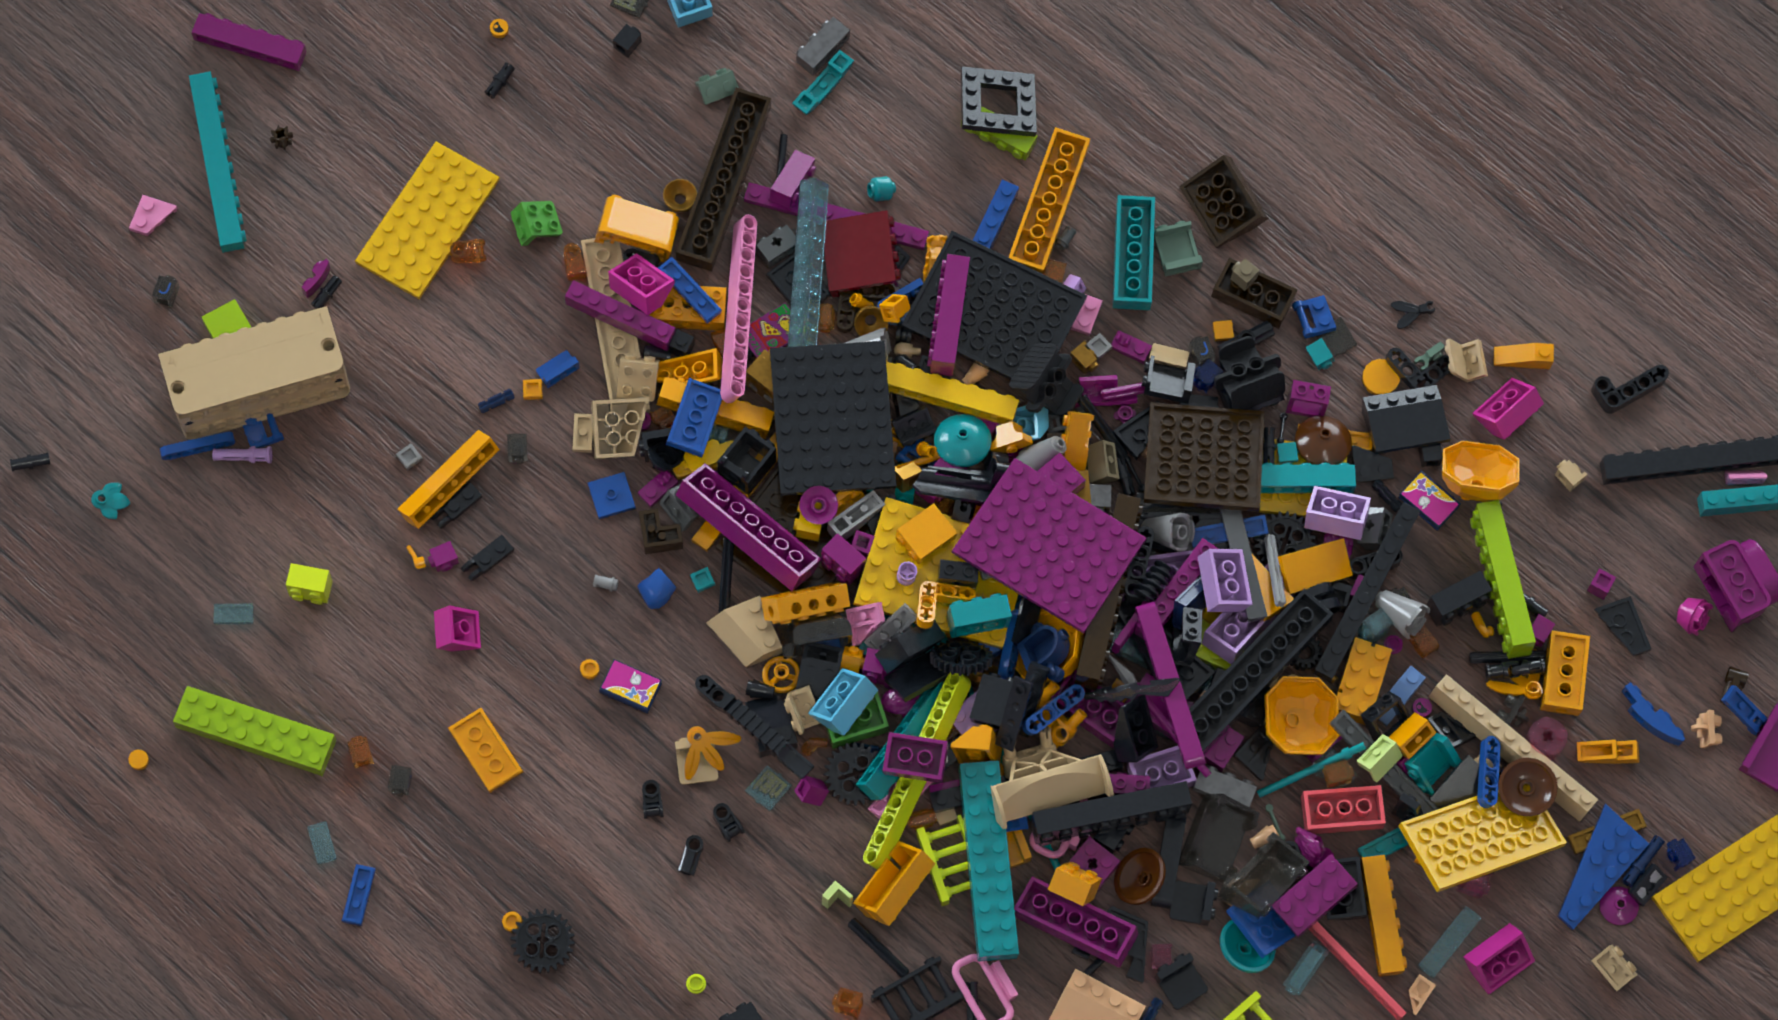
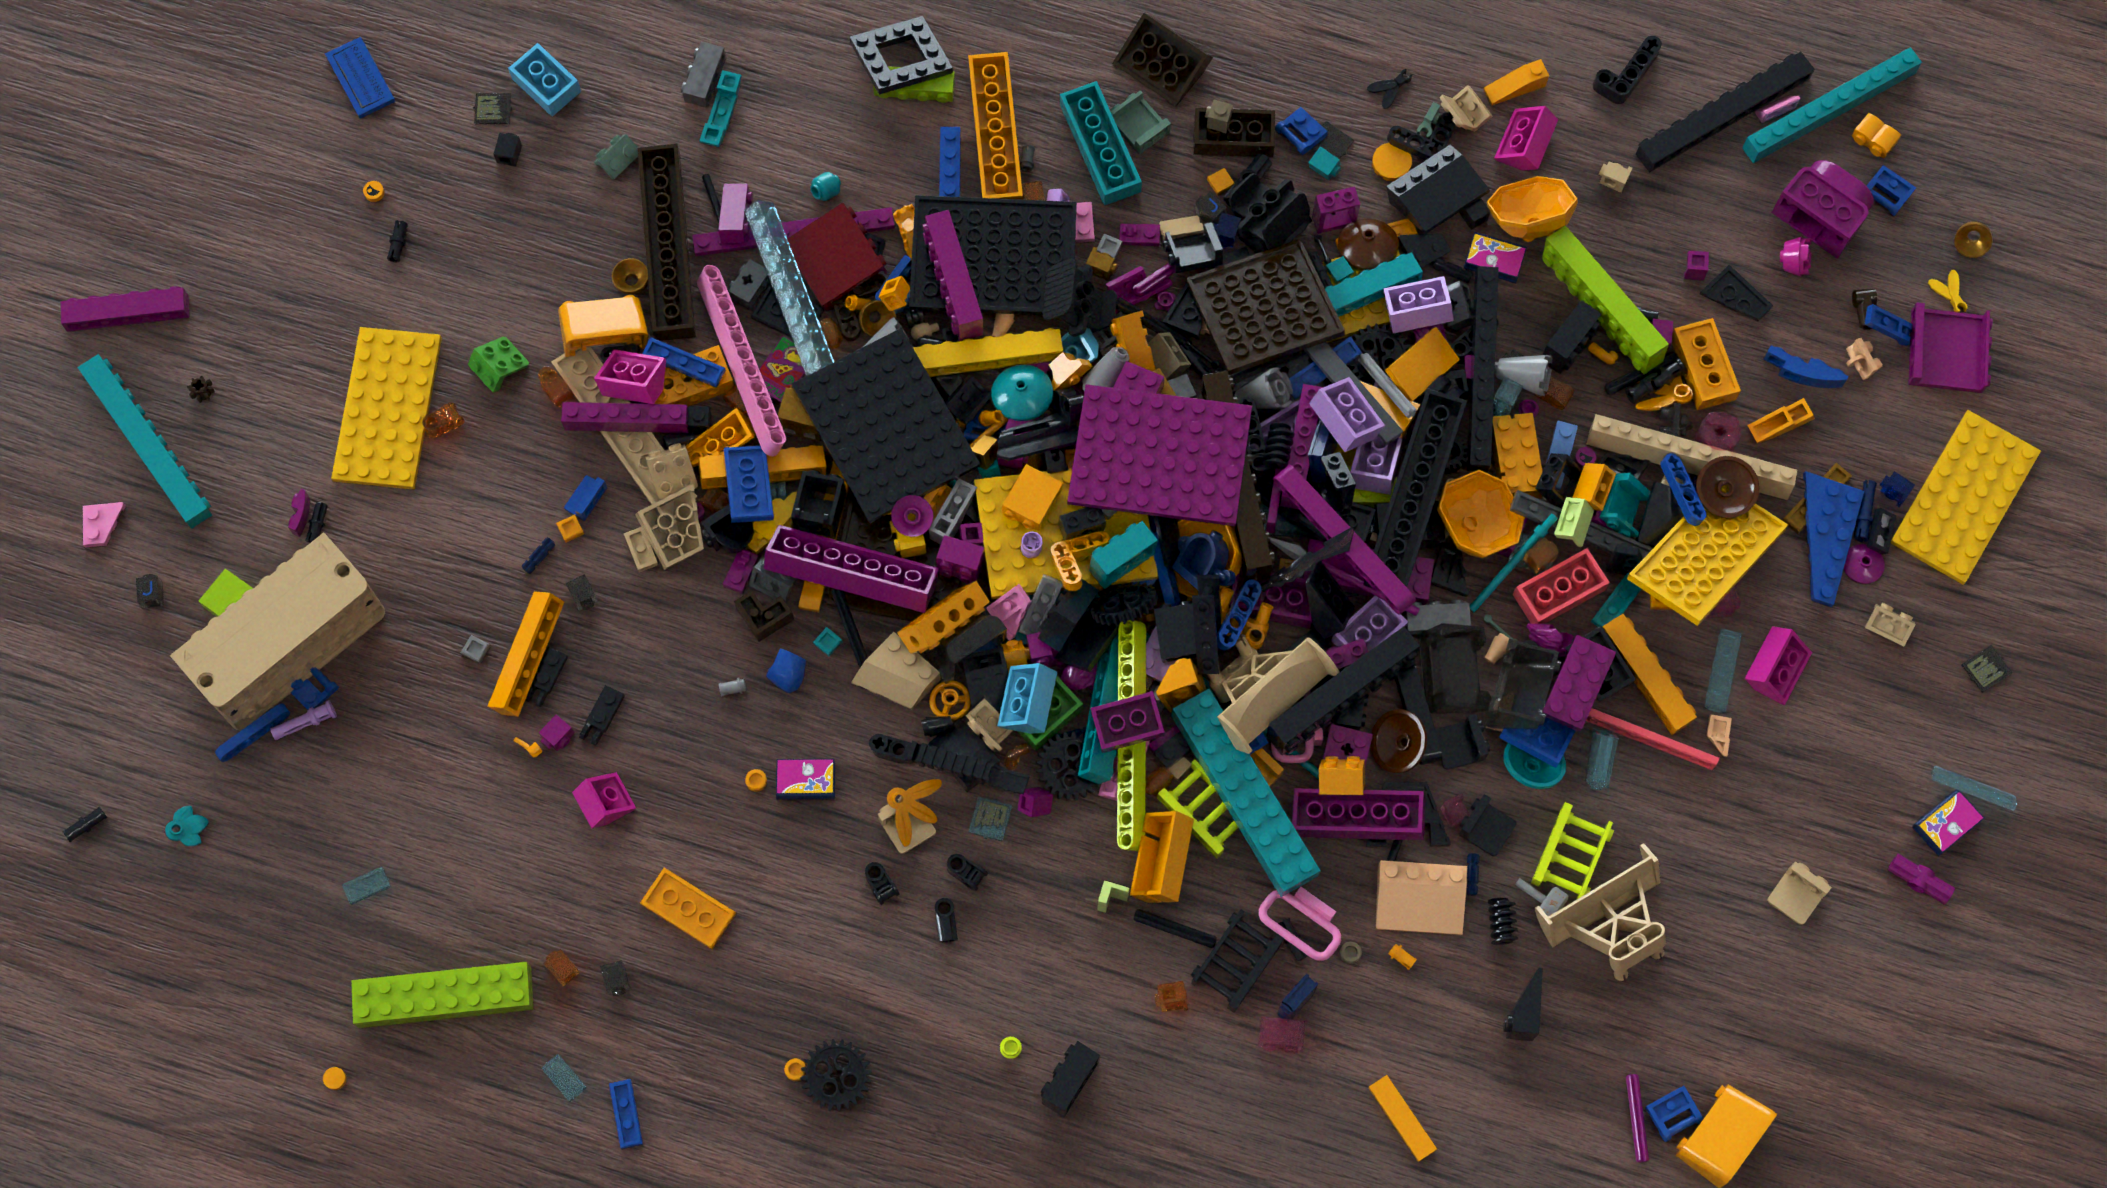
camera: 20 degrees left, 0 degrees up
(309, 584) = (431, 821): neon yellow brick -> none
(611, 495) = (698, 598): blue plate -> none

